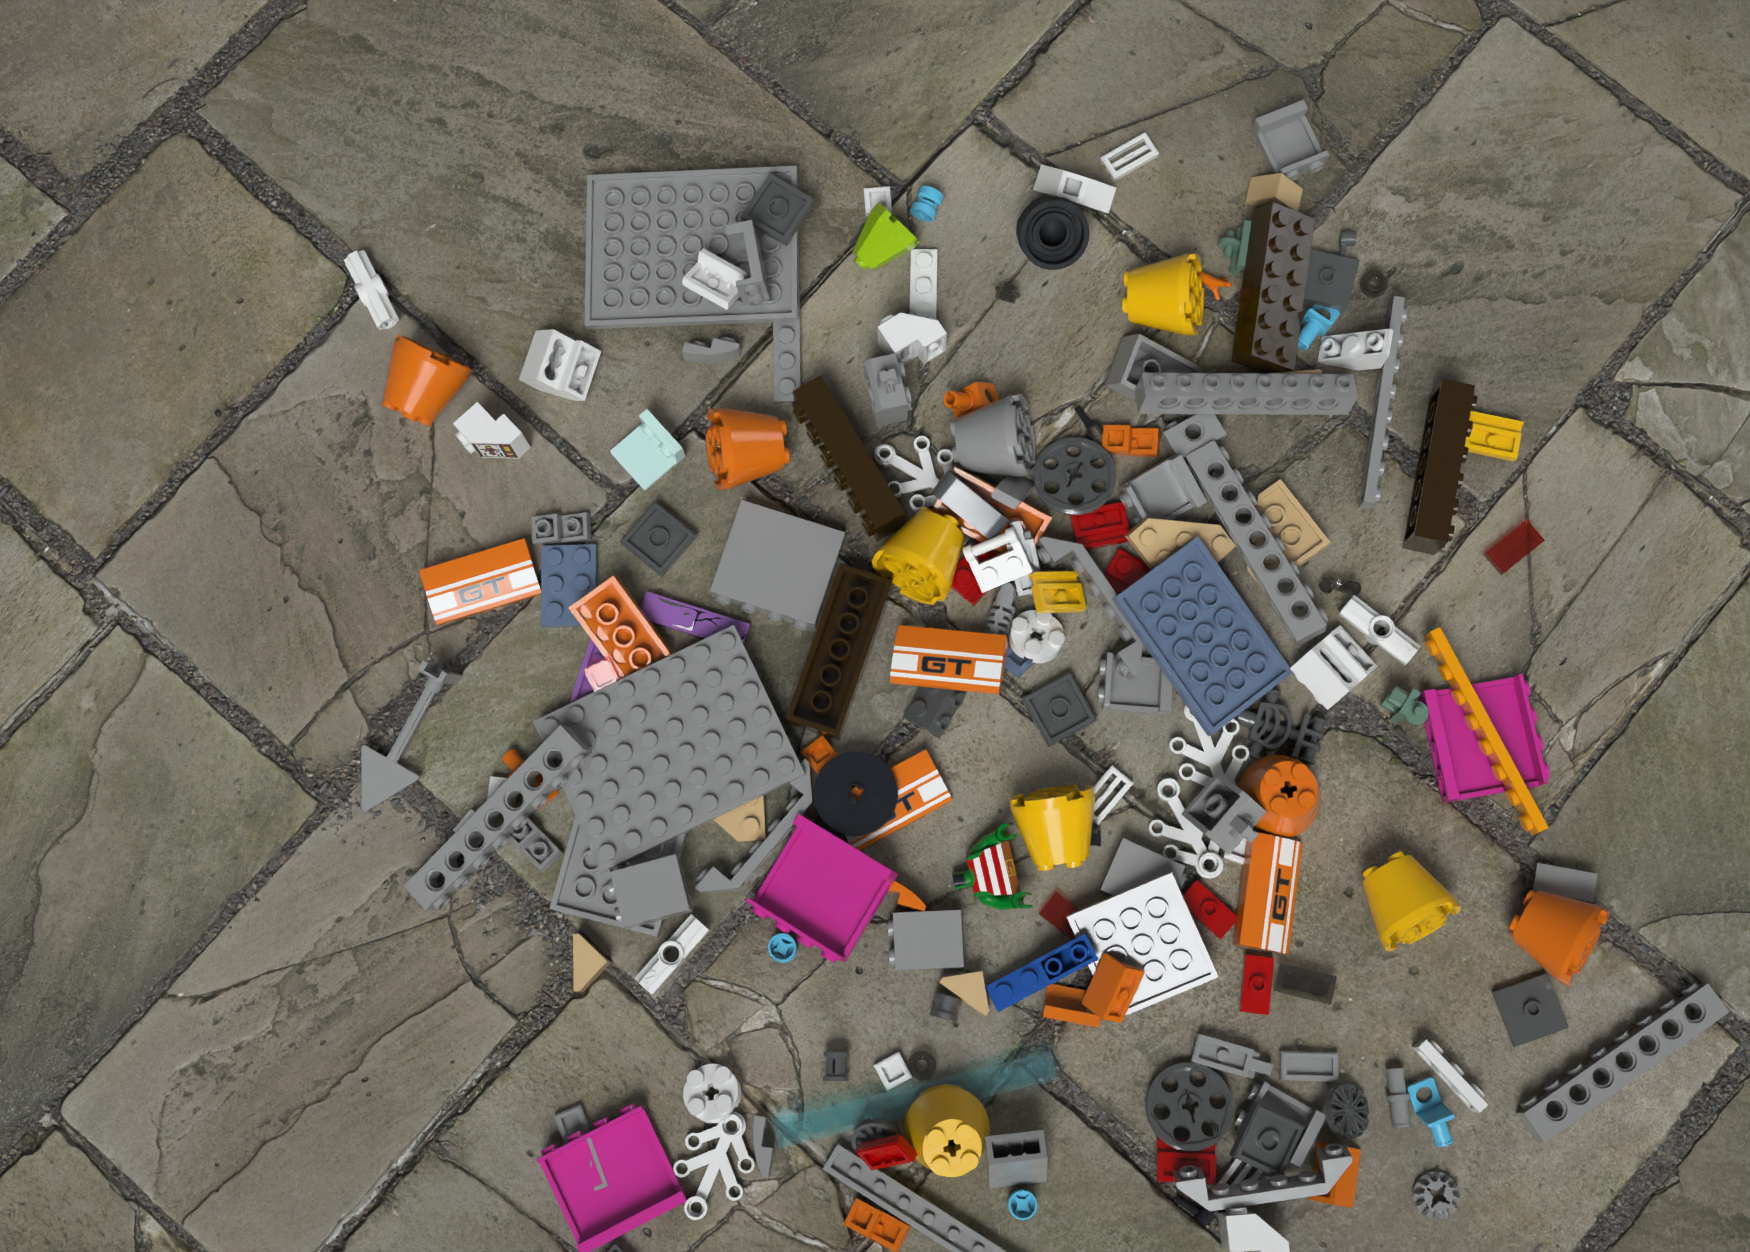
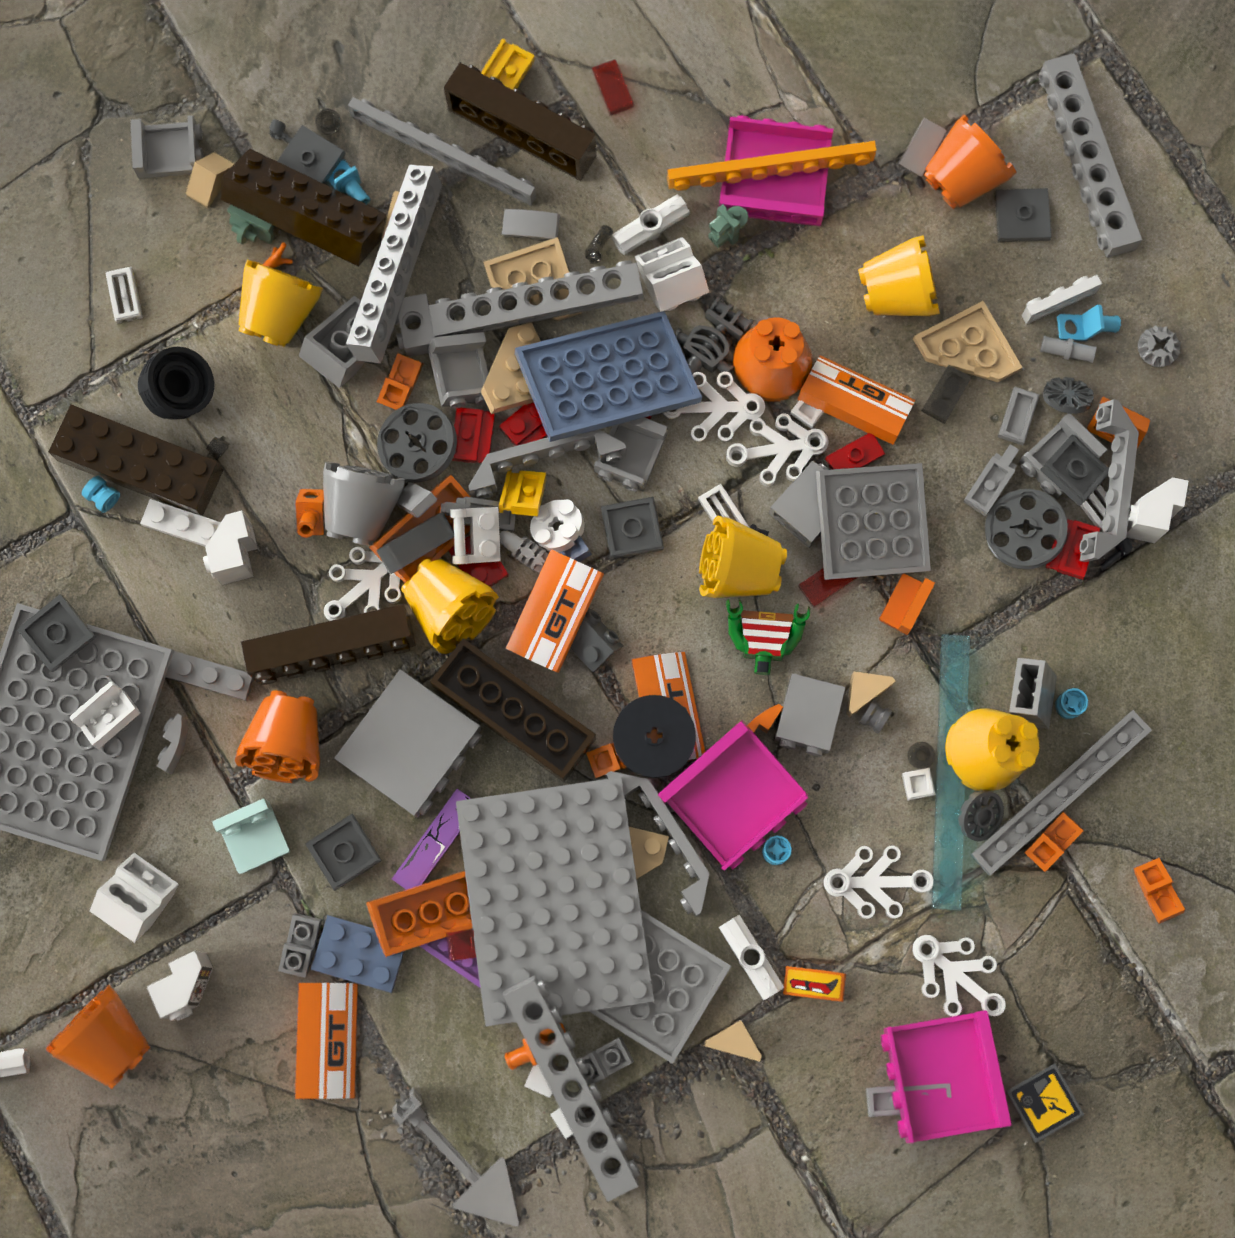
camera: 75 degrees left, 0 degrees up
(650, 892) = (688, 958): light grey brick -> none
(665, 1024) = (814, 984): none -> slope
(724, 1102) = (879, 968): white plate -> none
(746, 240) = (76, 670): light grey panel -> none
(763, 1153) = (961, 924): light grey slope -> none
(781, 1053) = (873, 882): none -> white plant
(836, 1066) = (906, 841): dark grey bush -> none
(875, 195) = (79, 540): white tile -> none
(882, 240) = (122, 545): lime cone -> none
(886, 391) = (273, 587): light grey hinge -> none
(886, 1152) = (995, 808): red plate -> none
(968, 224) = (136, 460): none -> dark brown brick
(1041, 972) = (870, 618): blue slope -> none
(1075, 188) = (136, 353): white slope -> none
(1088, 424) = (371, 415): black hand -> none
(1112, 988) = (904, 560): orange panel -> none
(1224, 813) = (778, 408): light grey hinge -> none
(1256, 984) = (934, 436): red plate -> none
(1336, 512) = (530, 224): none -> light grey slope
(1356, 350) = (386, 154): white slope -> none
(1366, 993) = (970, 344): none -> tan plate

